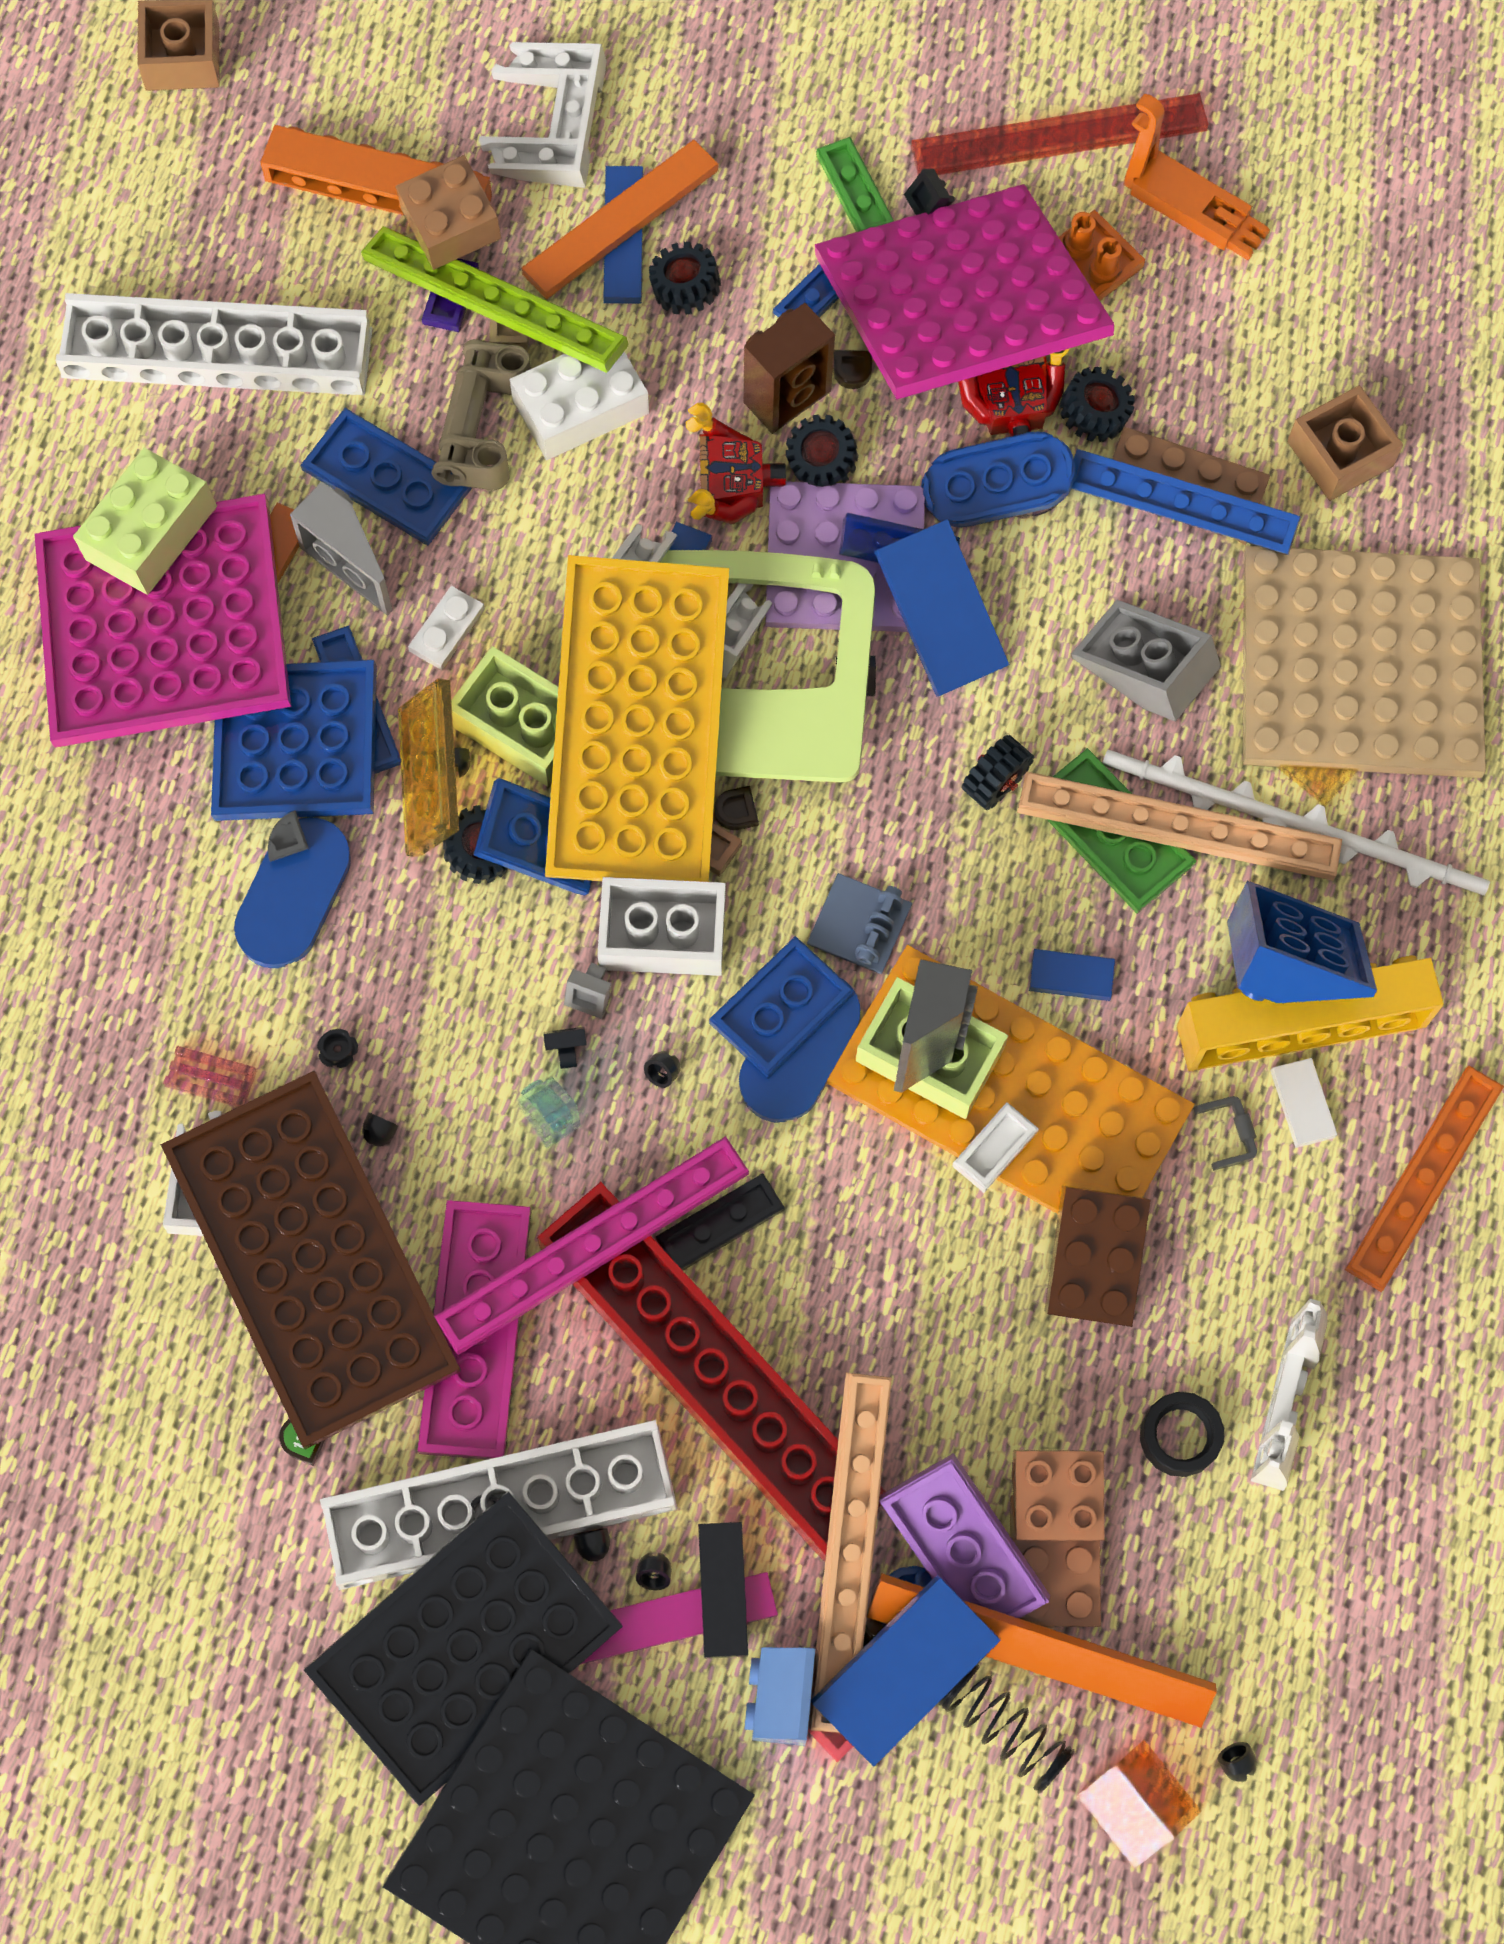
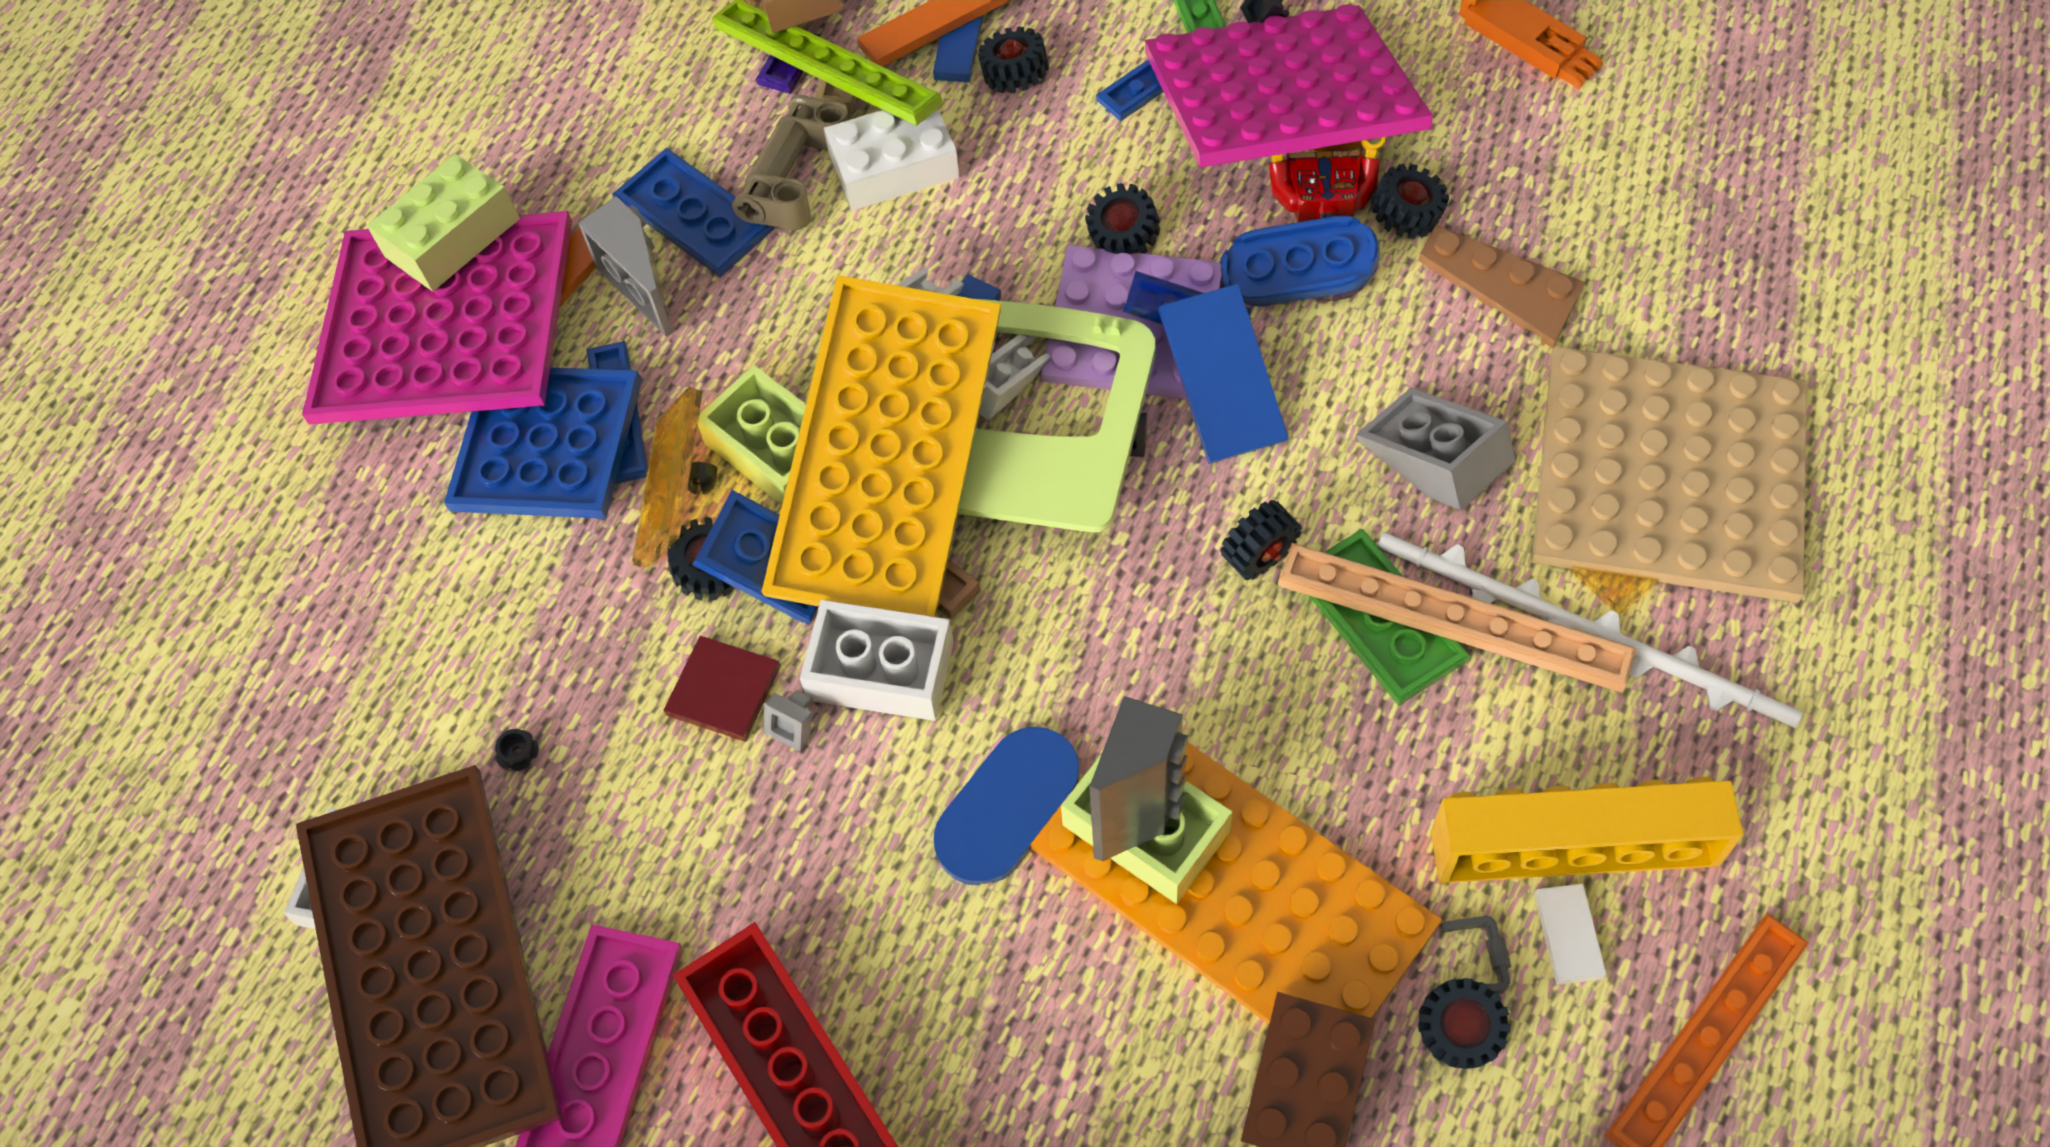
camera: 15 degrees right, 10 degrees down
(177, 1067) = (350, 751): clear pink tile -> none
(215, 344) = (558, 83): white tile -> none
(286, 838) = (512, 532): dark grey tile -> none
(293, 897) = (508, 589): blue tile -> none
(378, 1130) = (538, 841): black hinge -> none
(446, 627) = (720, 352): white plate -> none
(517, 967) = (722, 688): none -> dark red tile
(549, 1111) = (720, 842): clear light blue slope -> none
(565, 1041) = (754, 772): black tile -> none
(591, 1245) = (726, 993): dark pink tile -> none
(655, 1065) = (851, 804): black hinge -> none
(721, 1222) = (886, 988): black tile -> none
(729, 470) = (1026, 231): torso -> none
(736, 809) = (980, 553): dark brown tile -> none
(781, 1007) = (992, 759): blue tile -> none
(788, 367) = (1097, 135): reddish brown brick -> none
(852, 368) = (1167, 152): dark brown tile -> none
(860, 923) = (1092, 680): sand blue hinge -> none
(995, 1147) = (1206, 940): white tile -> none
(1072, 975) = (1318, 762): blue tile -> none
(1100, 253) = (1430, 65): orange plate -> none
(1185, 502) = (1493, 297): blue plate -> none
(1221, 1191) = (1464, 1023): none -> black wheel
(1296, 950) = (1573, 757): blue slope -> none
(1344, 443) = (1667, 255): medium nougat brick -> none

